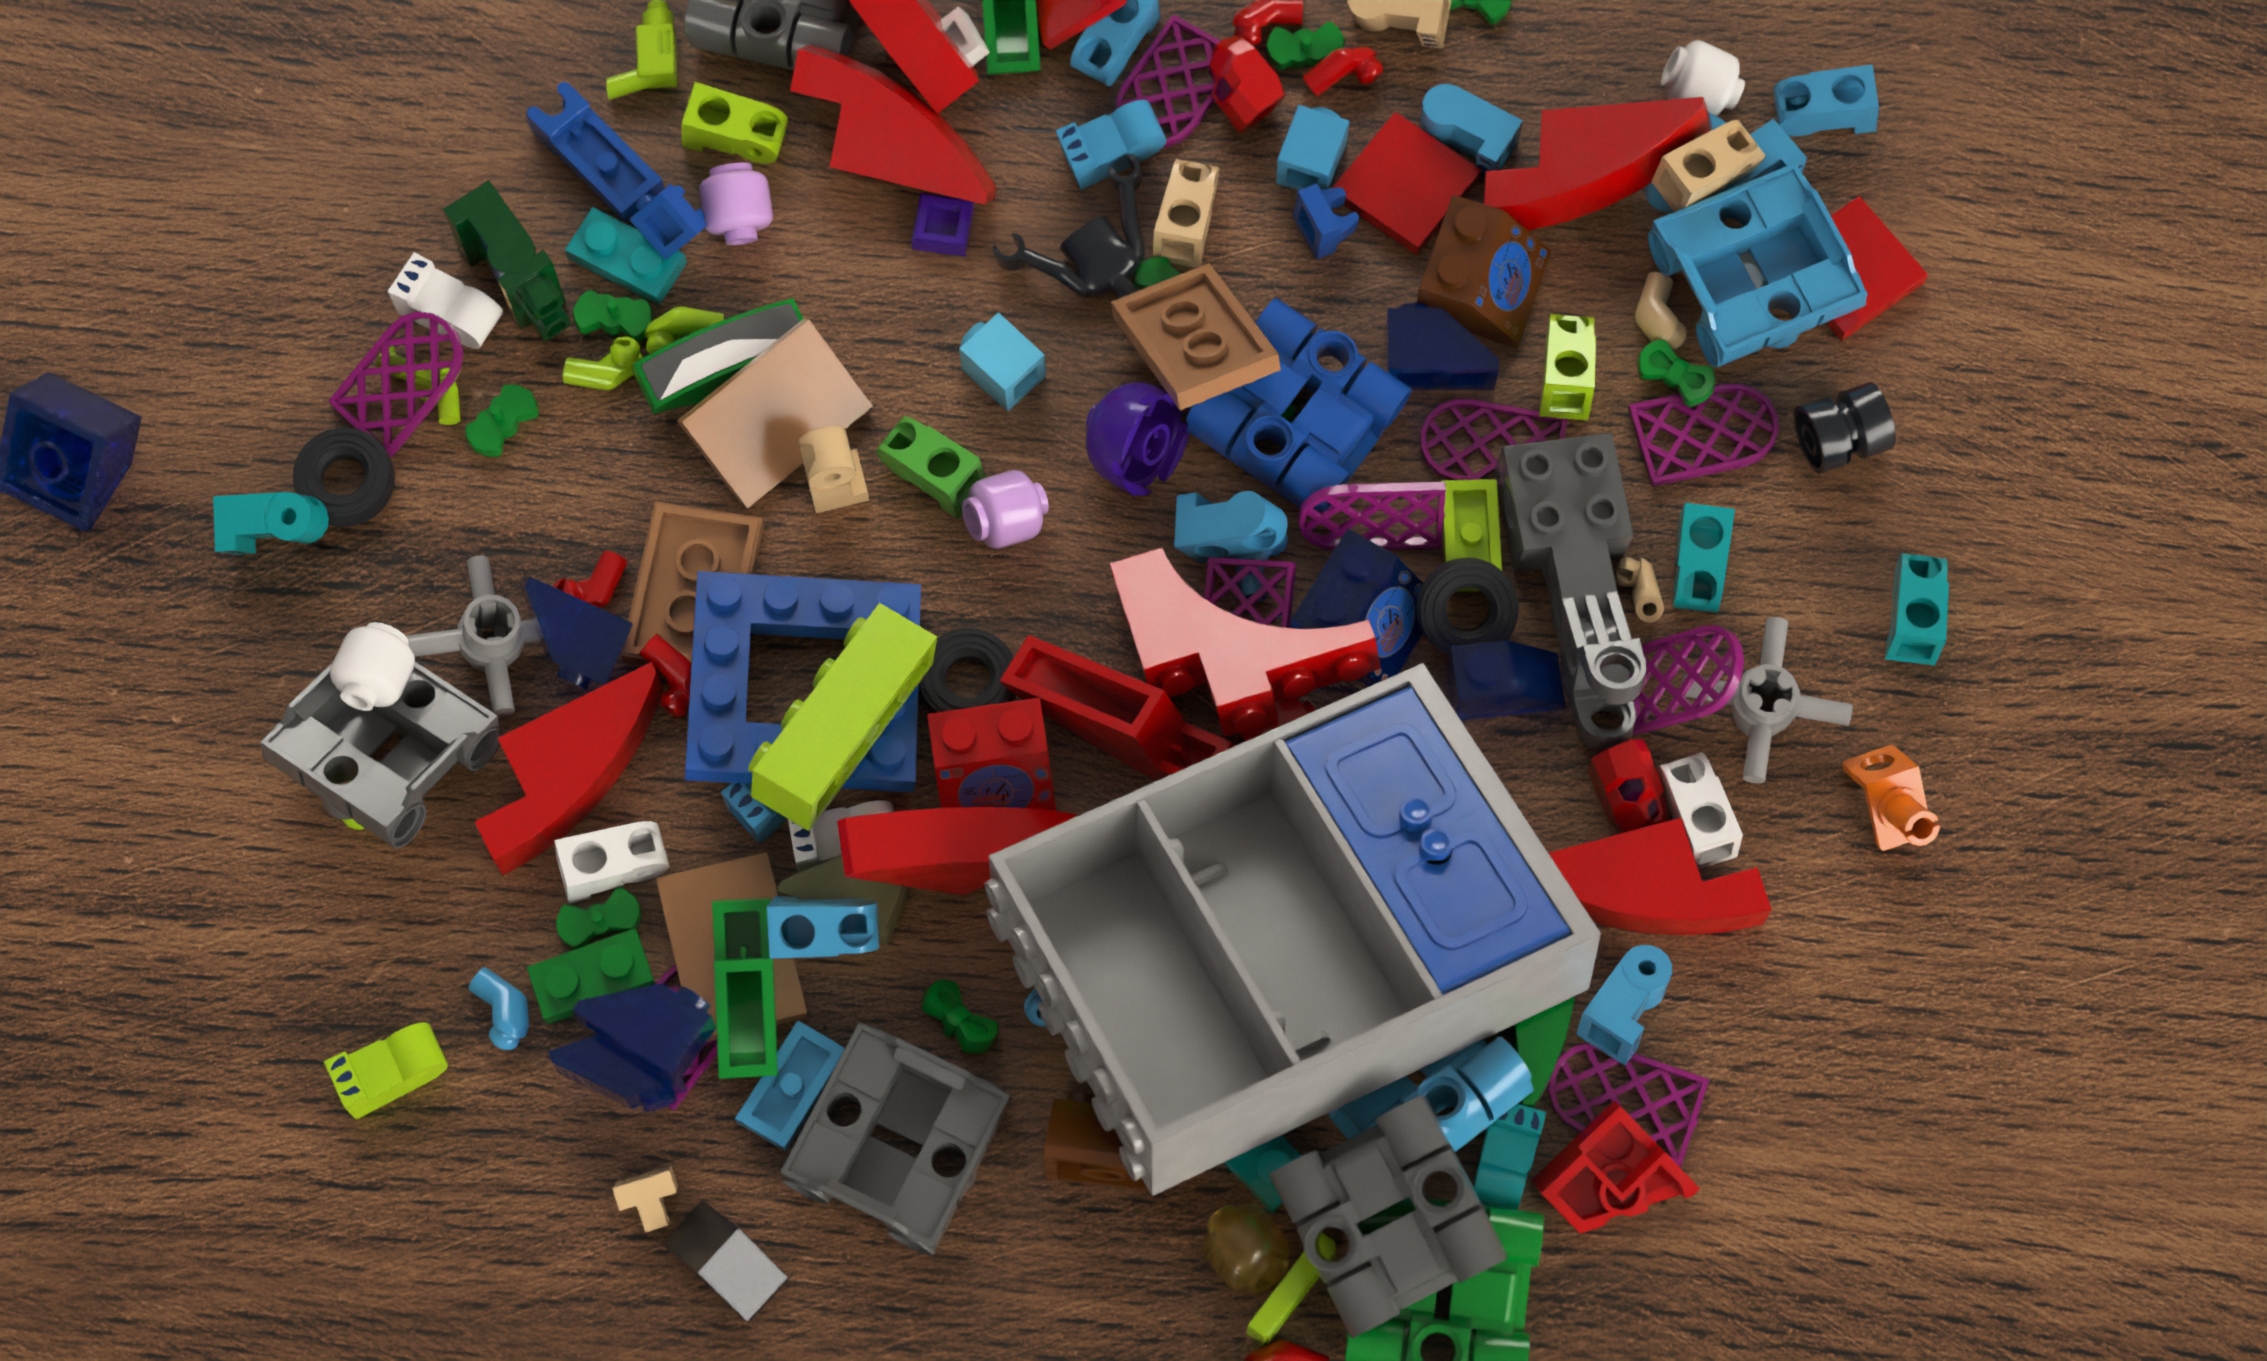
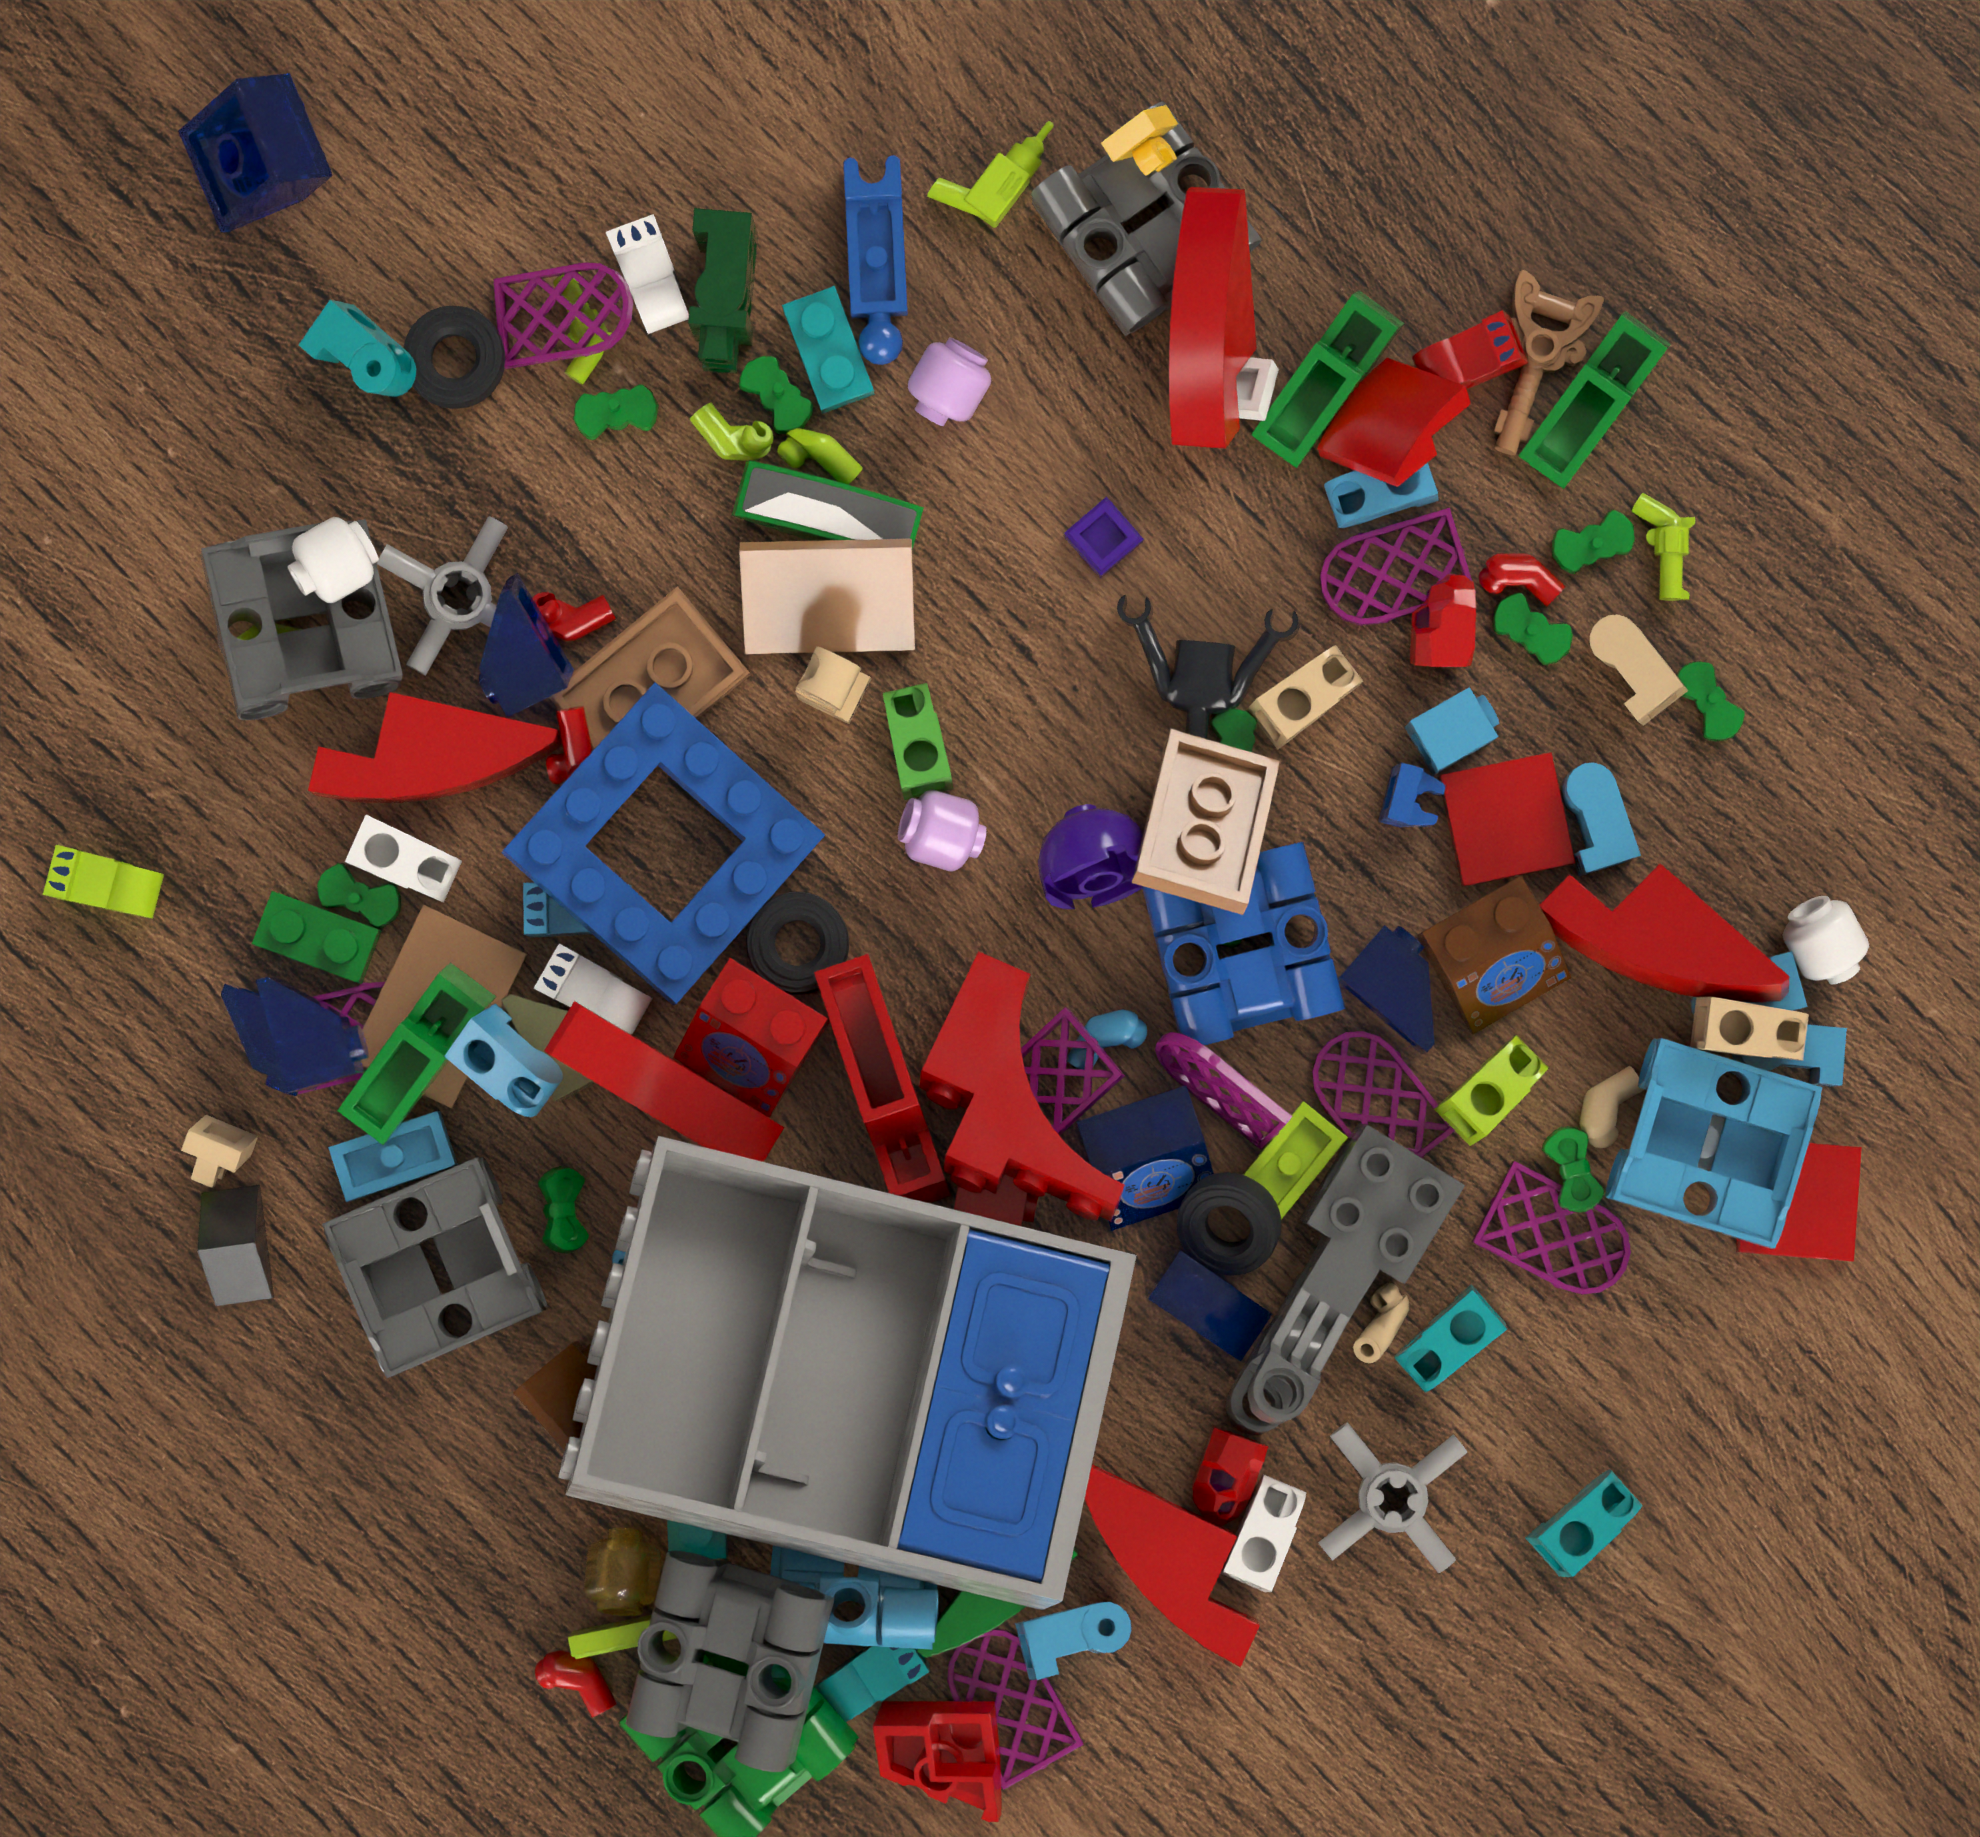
camera: 40 degrees right, 15 degrees up
(508, 1005) = (233, 911): dark azure arm -> none
(669, 221) = (877, 360): blue tile -> none
(732, 125) = (1004, 309): lime leg -> none
(841, 716) = (656, 911): lime brick -> none
(889, 129) = (1122, 426): red slope -> none
(1001, 361) = (1045, 699): medium azure brick -> none
(1108, 140) = (1294, 585): dark azure leg -> none
(1228, 528) = (1107, 1007): dark azure leg -> none
(1341, 63) = (1543, 672): red arm -> none
(1694, 710) = (1384, 1456): magenta window -> none
(1828, 101) = (1909, 1046): dark azure leg -> none
(1853, 424) = (1668, 1334): black wheel -> none
(1894, 798) = (1422, 1657): orange bracket -> none

